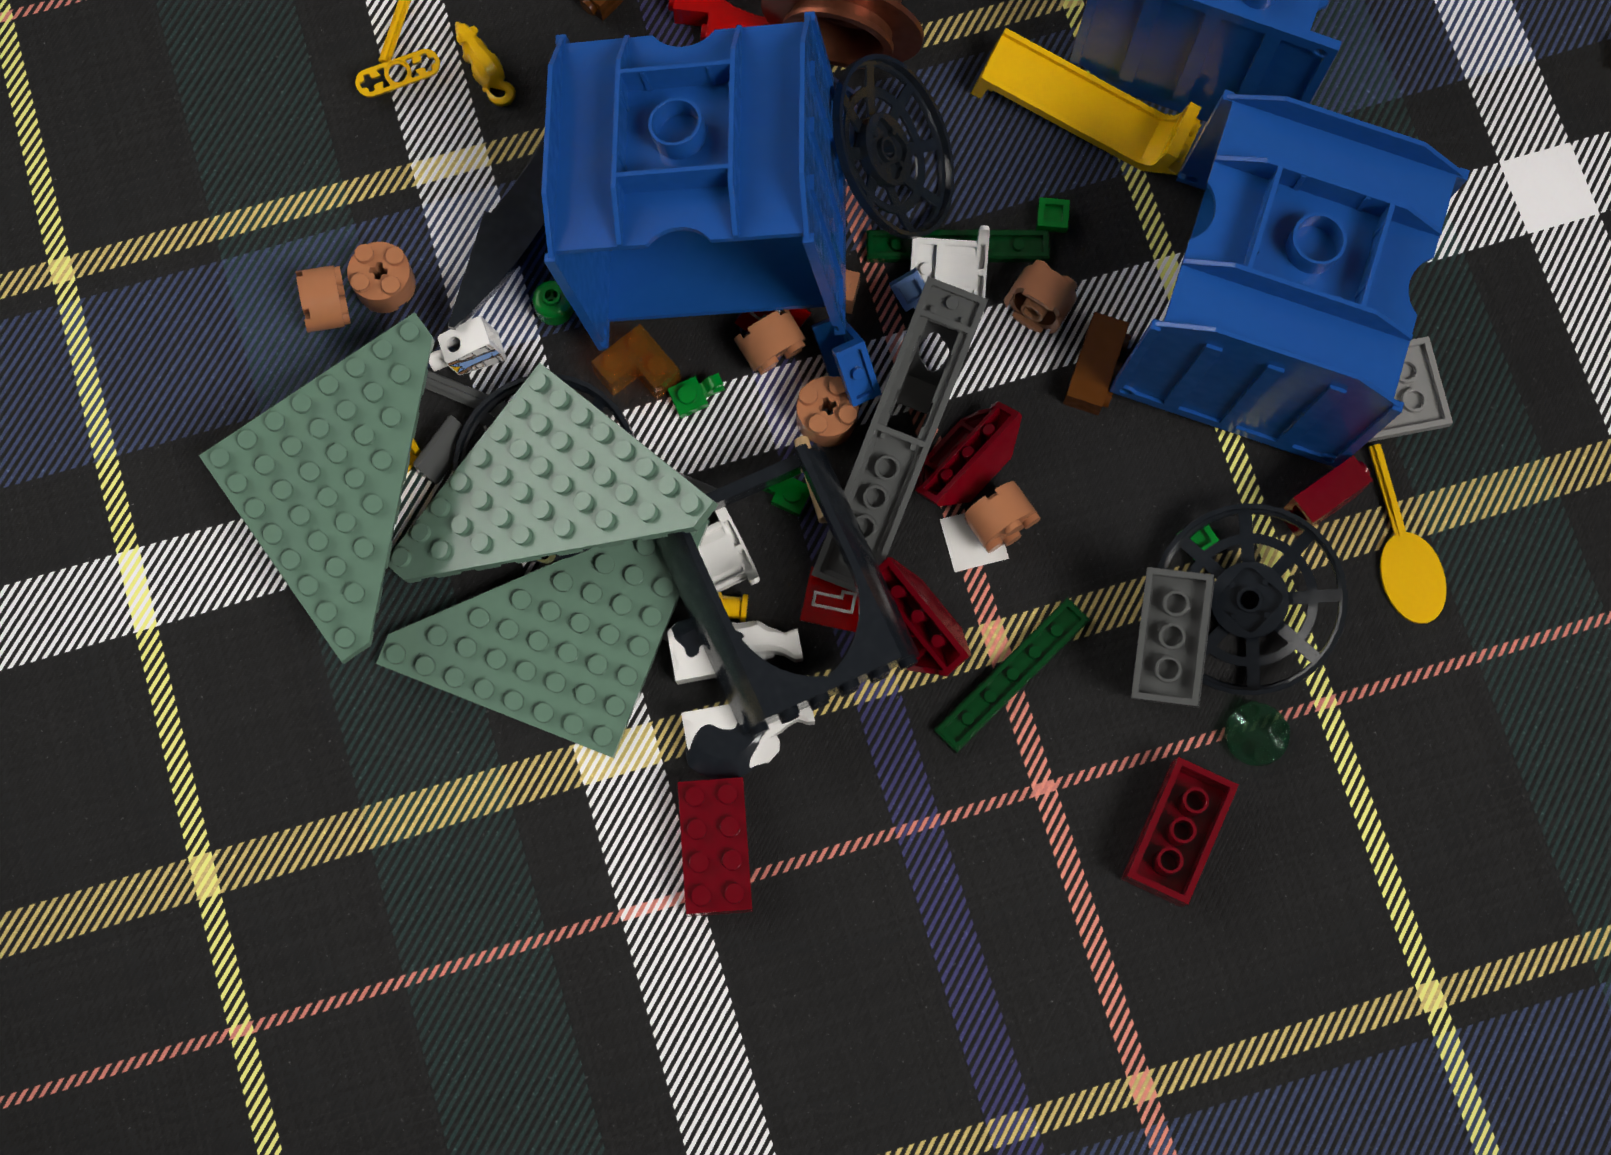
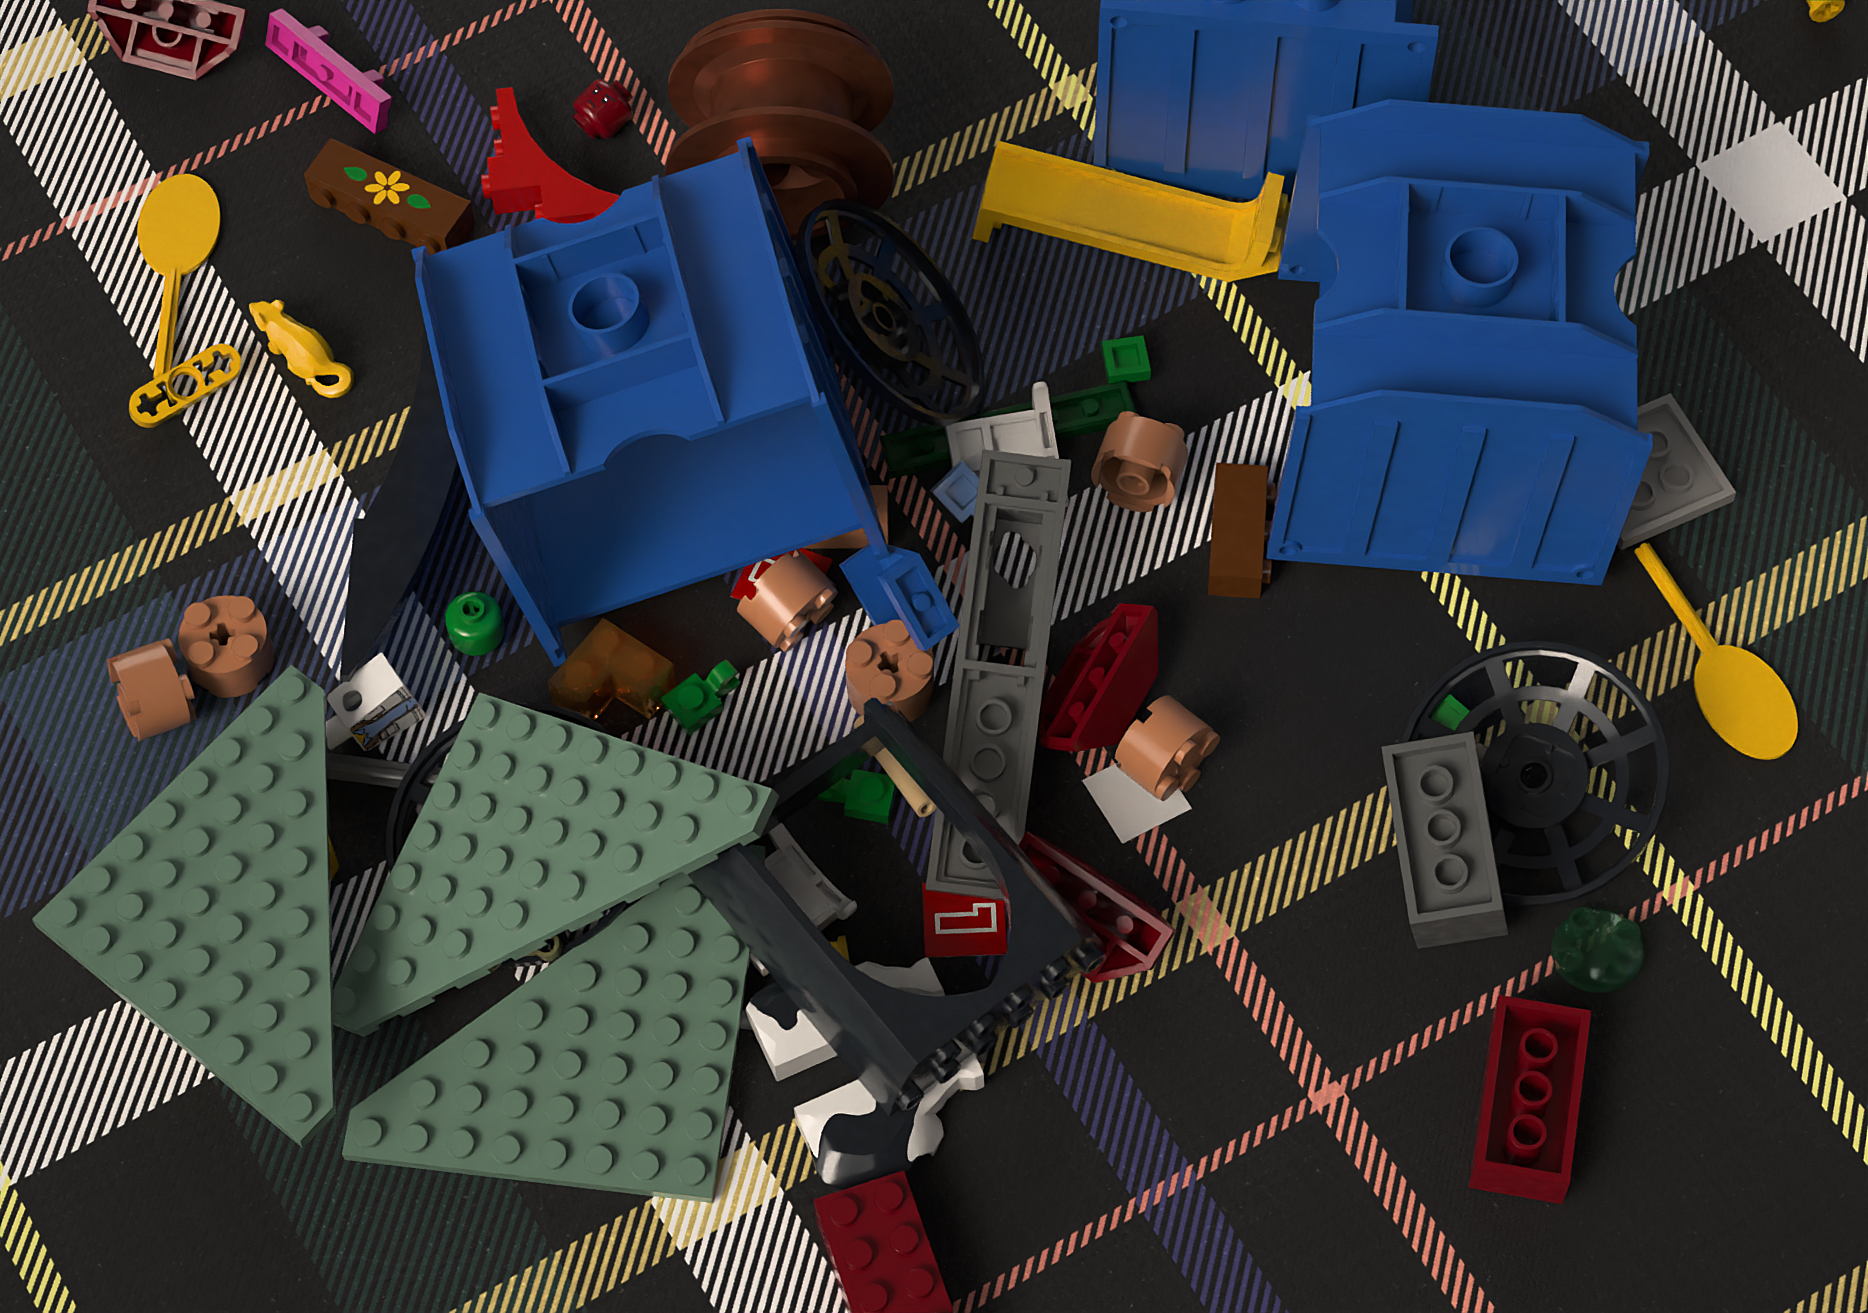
camera: 10 degrees left, 15 degrees down
(439, 452) = (364, 853): dark grey slope -> none
(1011, 675) = (1238, 958): dark green tile -> none
(1329, 493) = (1599, 613): dark red brick -> none

